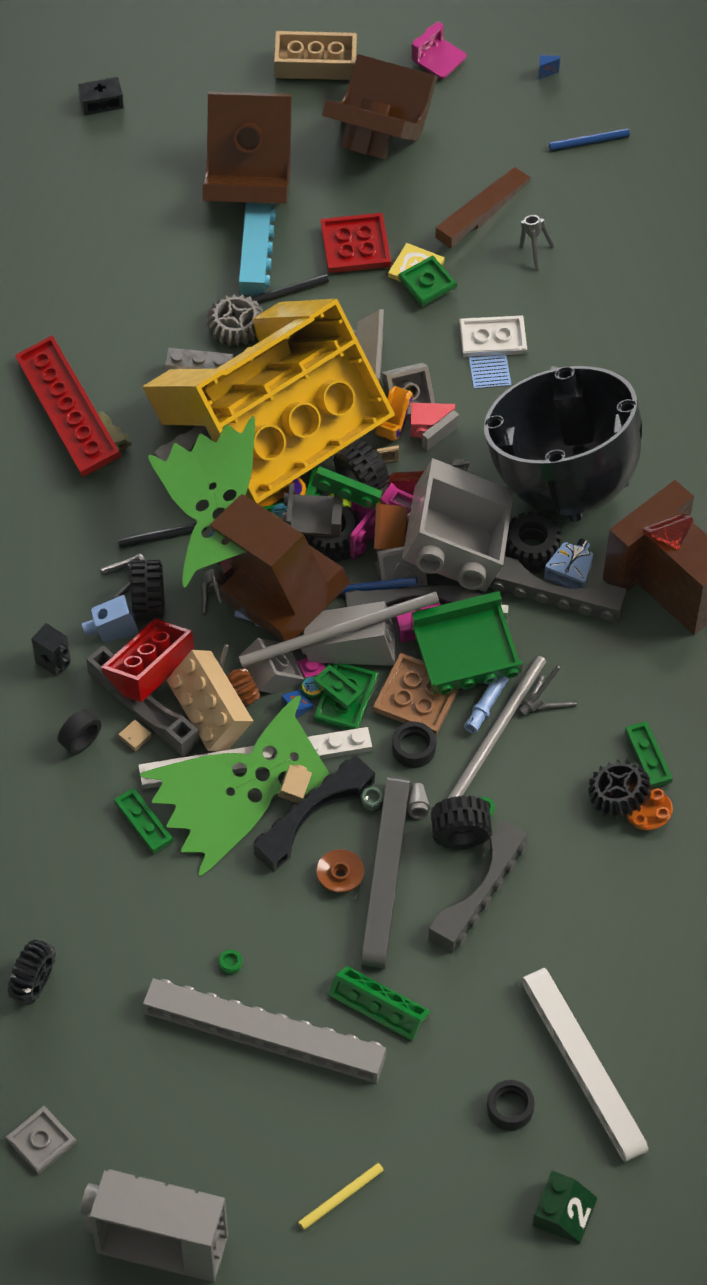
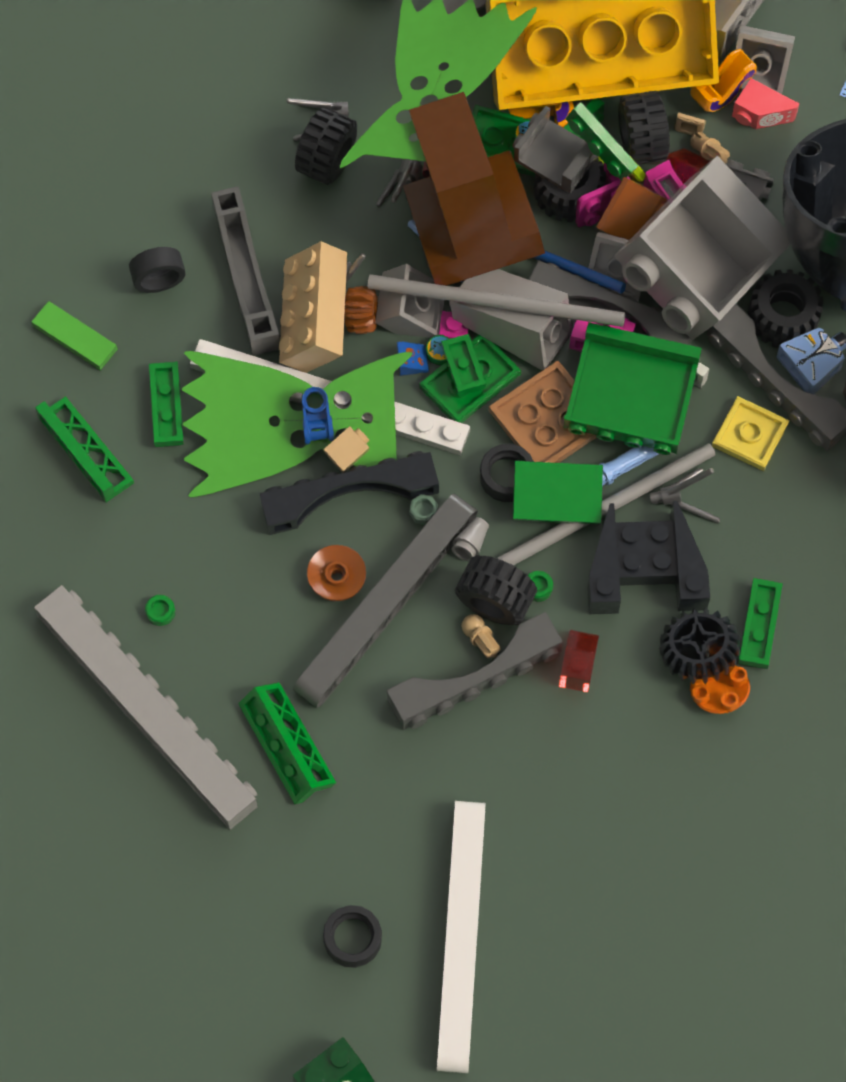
camera: 30 degrees right, 10 degrees up
(44, 808) = (74, 335): none -> bright green tile
(51, 649) = (184, 162): black brick -> none
(103, 885) = (80, 452): none -> green fence
(112, 620) = (269, 163): light blue torso -> none
(135, 735) = (218, 304): tan tile -> none
(148, 659) = (277, 226): red slope -> none
(157, 535) = (374, 88): black bar -> none
(262, 772) = (317, 418): none -> blue piece
(340, 1196) = (112, 933): light yellow bar -> none
(412, 462) = (709, 147): none -> tan axle
(440, 430) = (766, 126): light grey tile -> none
(457, 858) = (480, 635): none -> tan axle
(459, 738) = (557, 492): none -> green tile
(544, 843) = (578, 661): none -> clear red slope
(547, 748) = (647, 556): none -> black wedge
(560, 636) = (750, 433): none -> light yellow tile

